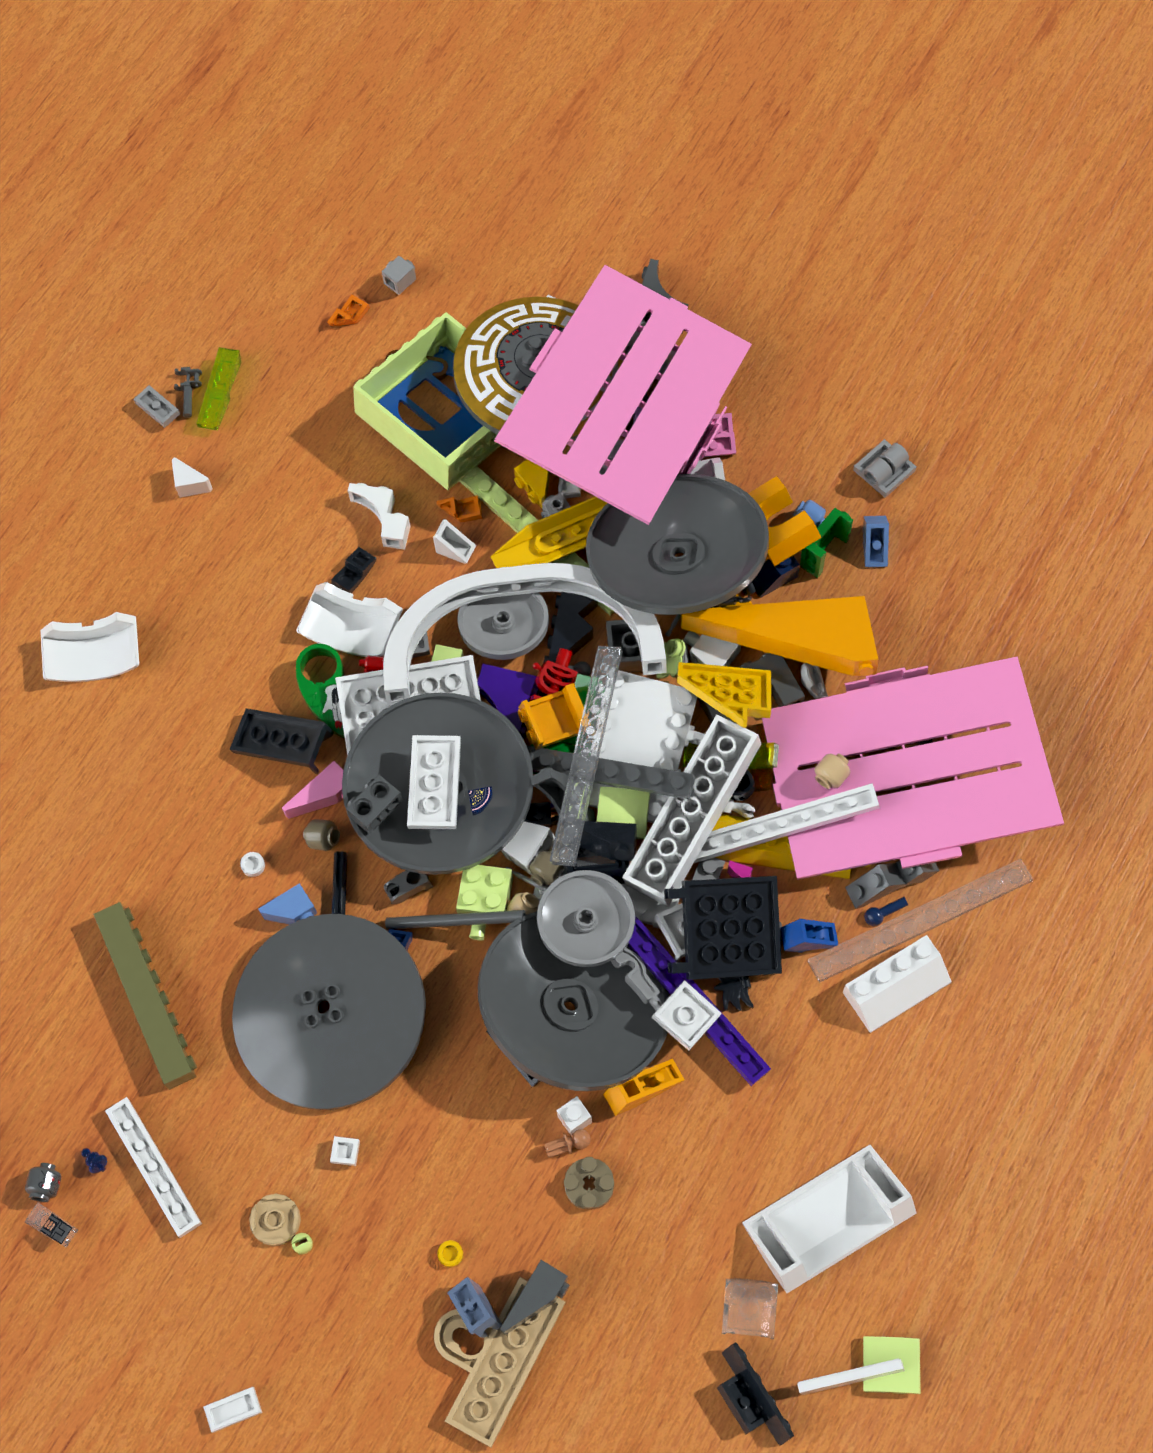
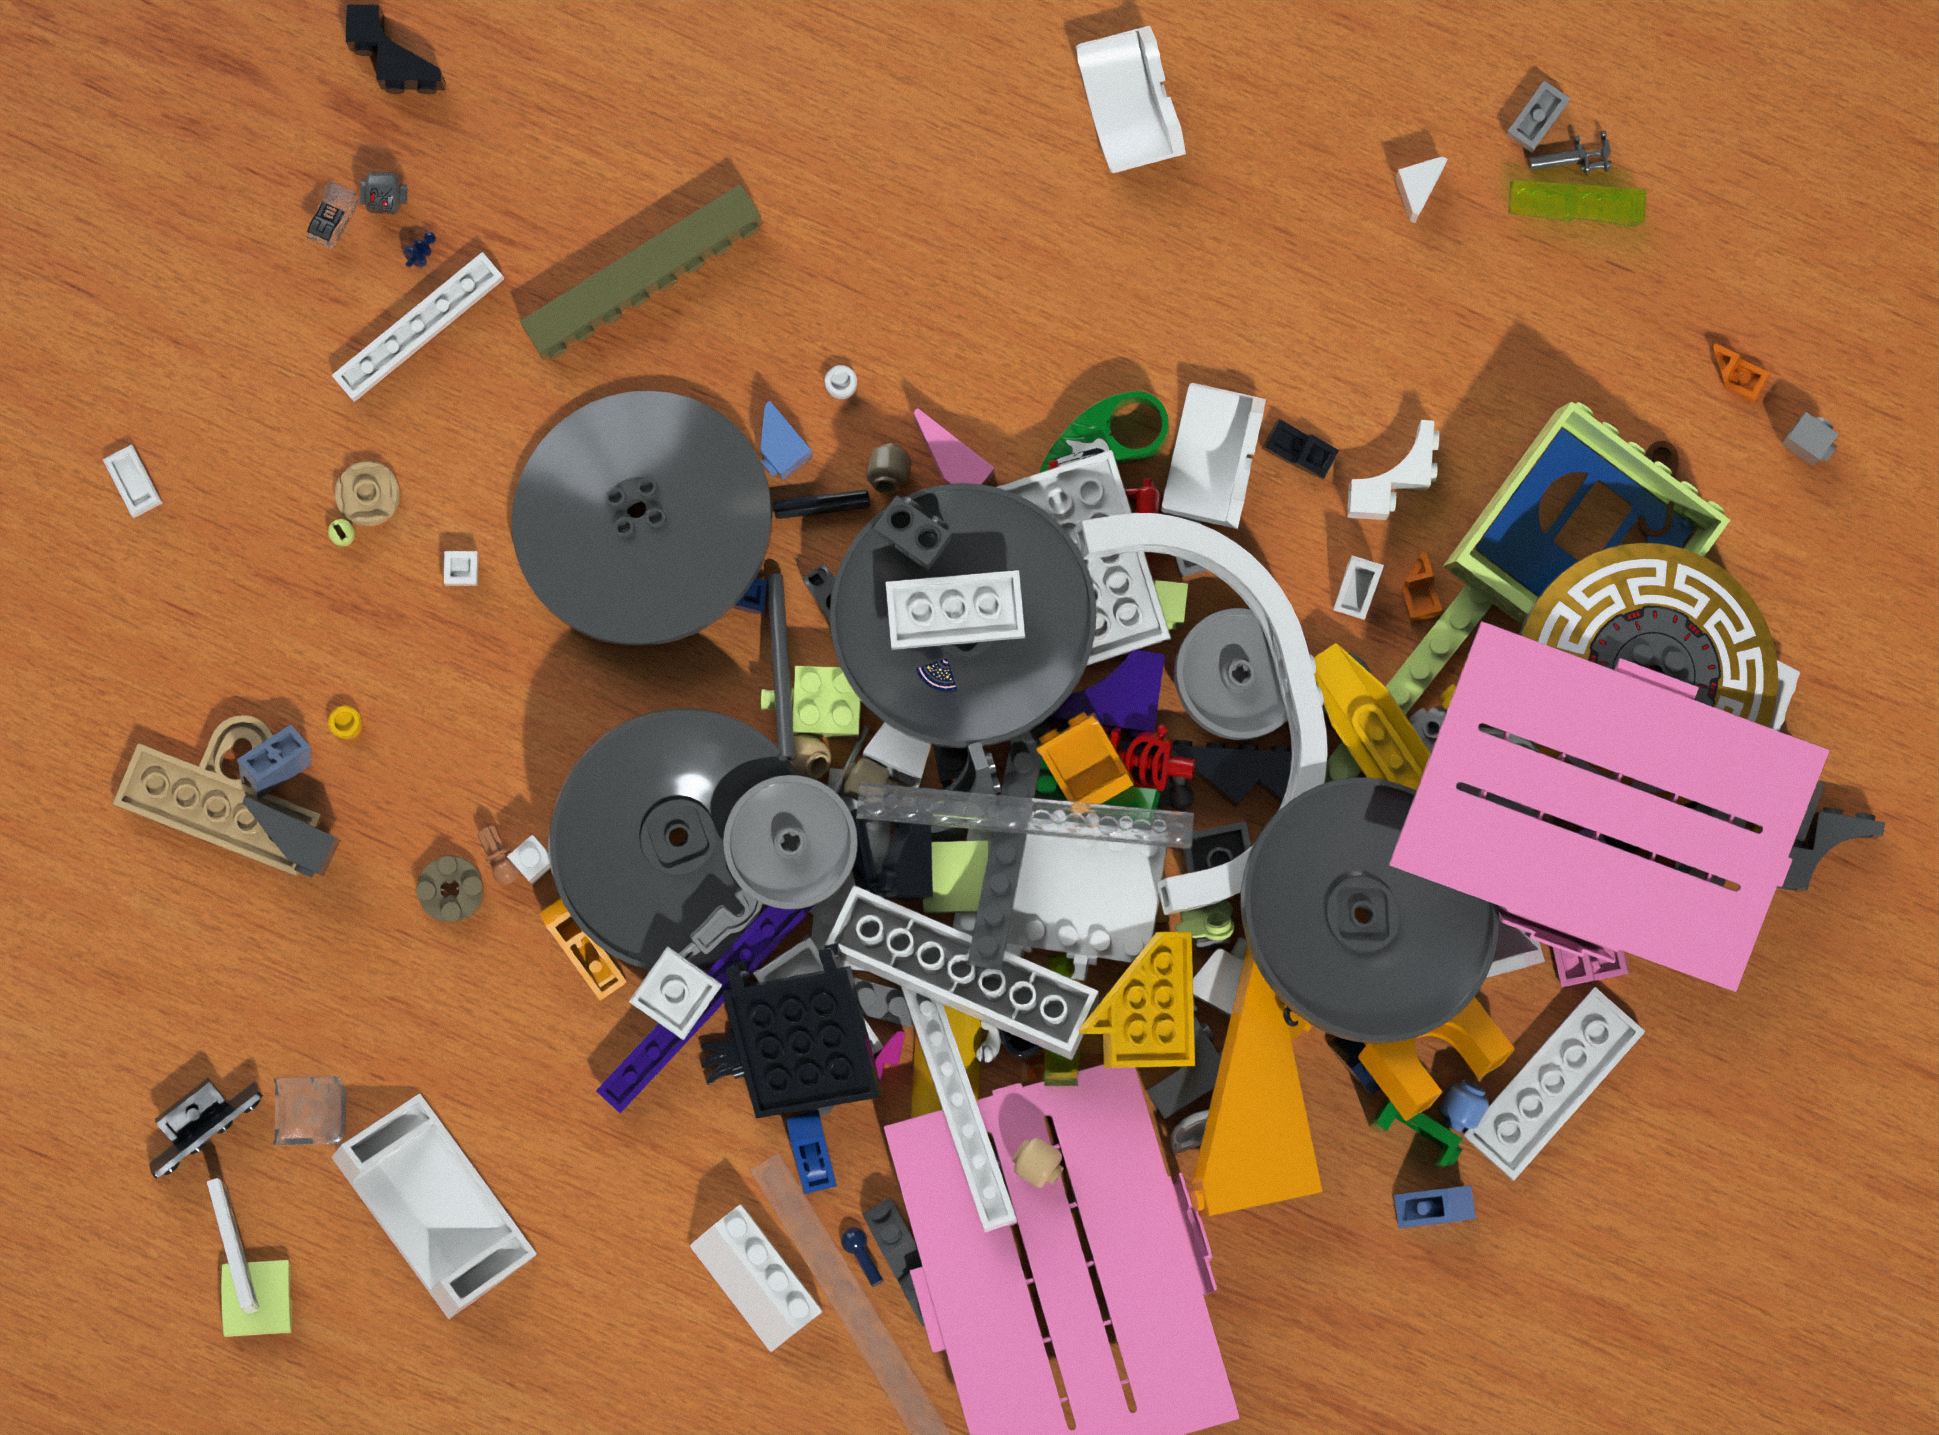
camera: 80 degrees right, 15 degrees up
(280, 738) = (1021, 387): black plate -> none
(798, 462) = (1554, 1083): none -> white plate
(885, 467) = (1561, 1213): light grey plate -> none

